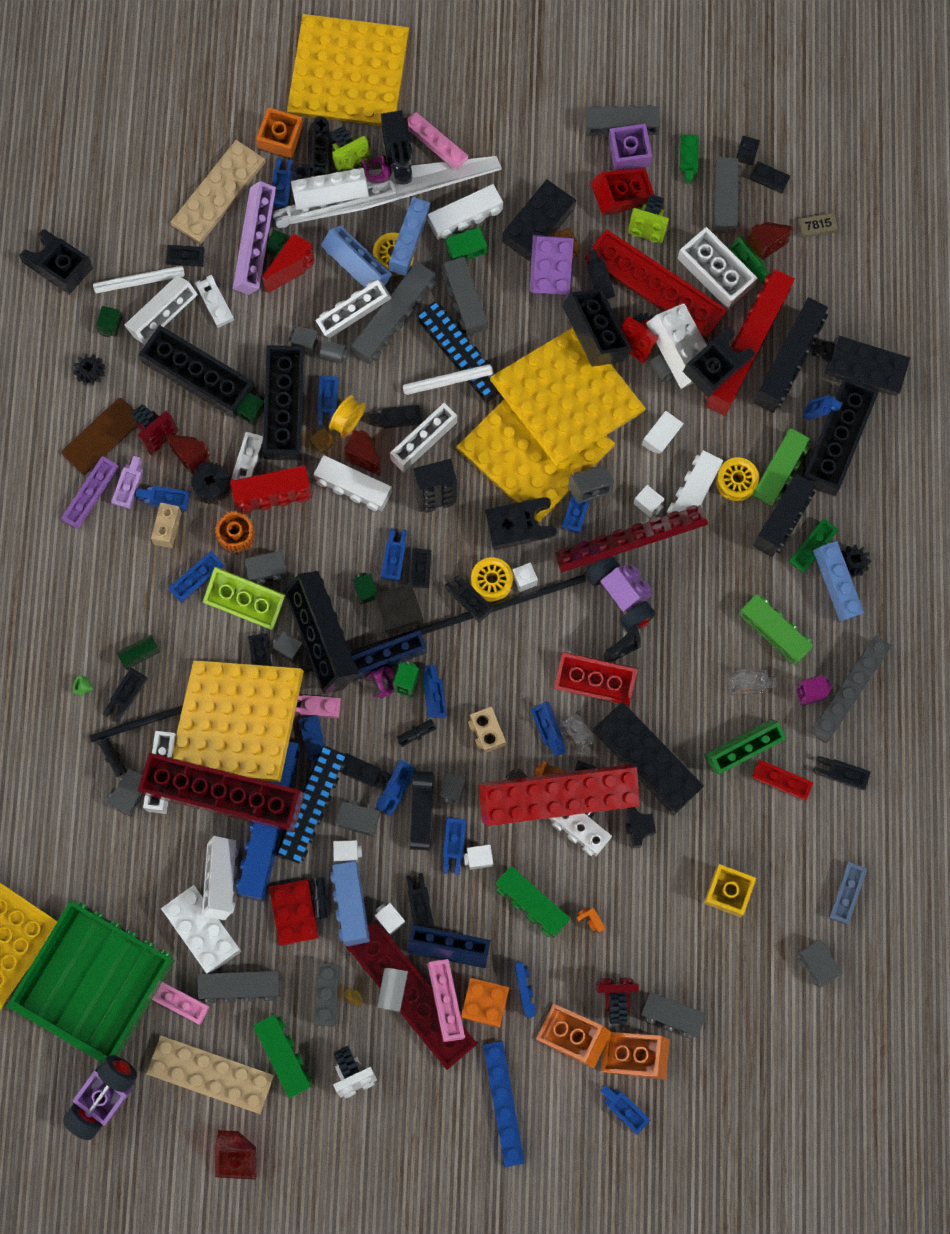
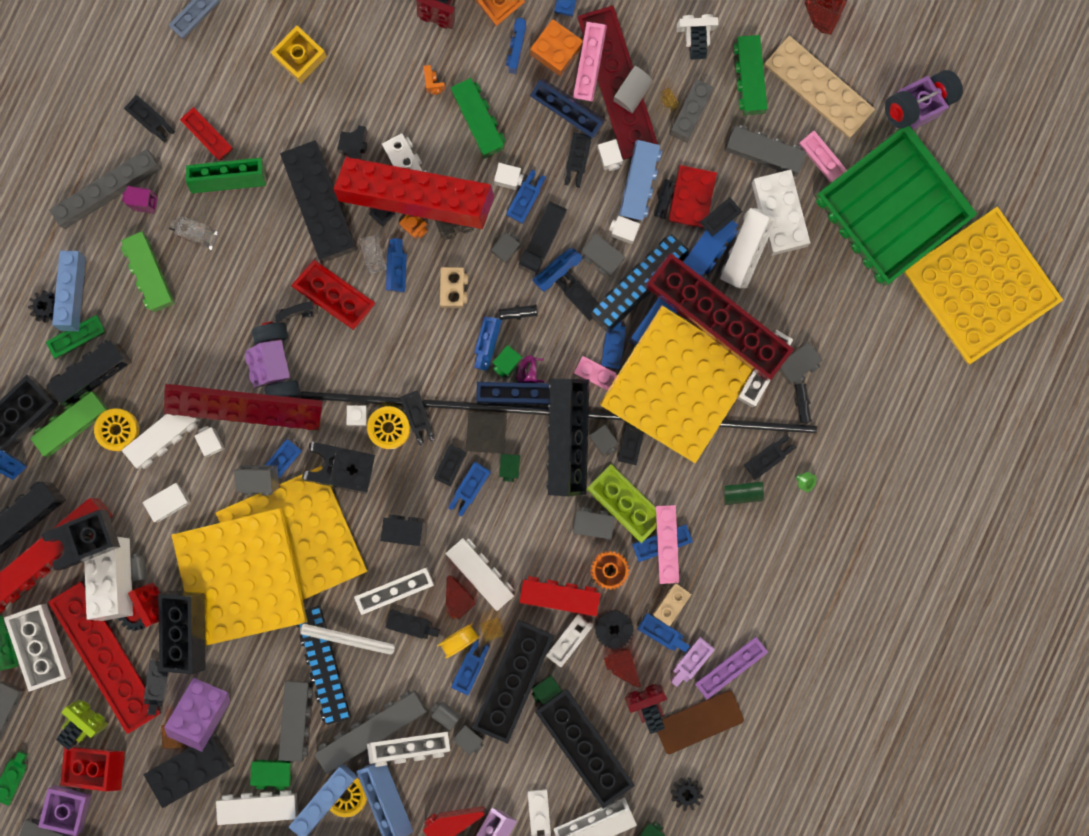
camera: 155 degrees left, 10 degrees up
(190, 575) = (667, 544): none -> bright pink plate
(256, 892) = (721, 217): none -> black tile

